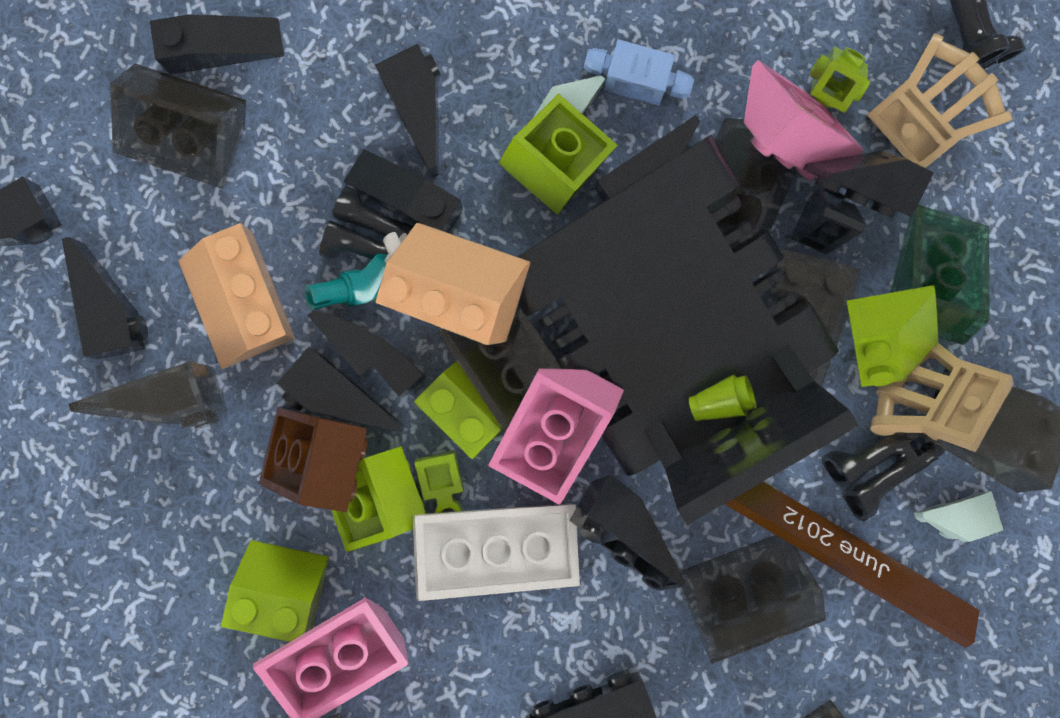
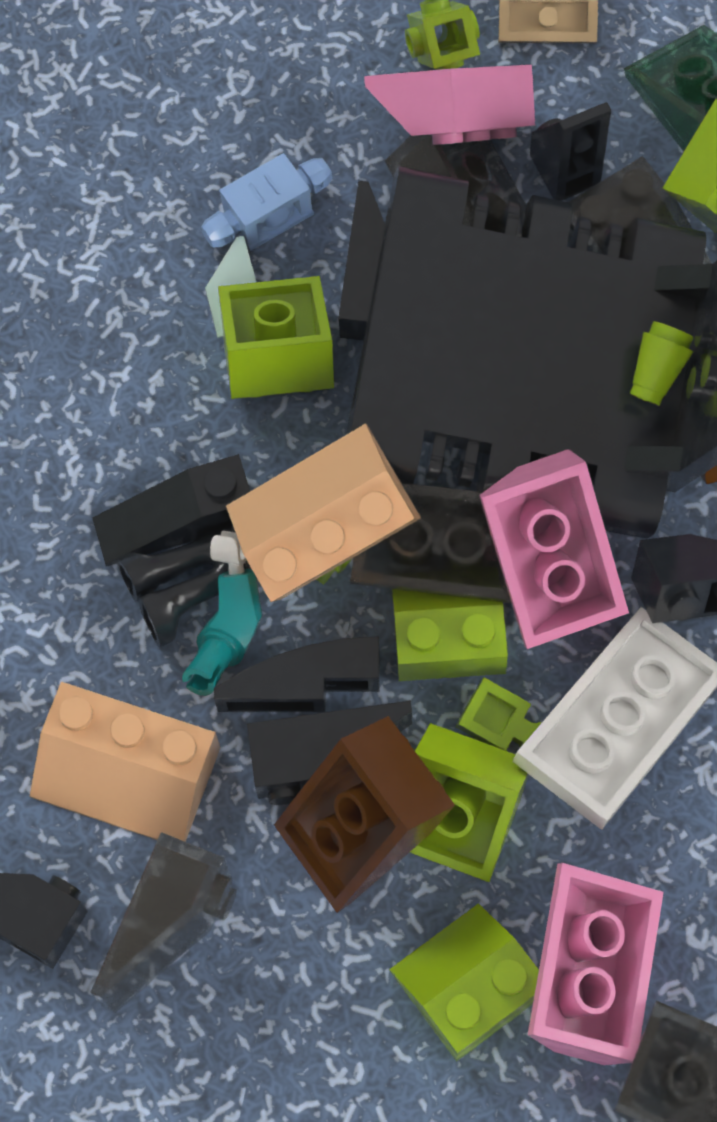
camera: 40 degrees left, 15 degrees down
(414, 92) = (88, 421): black slope -> none
(883, 178) = (573, 73): black slope -> none

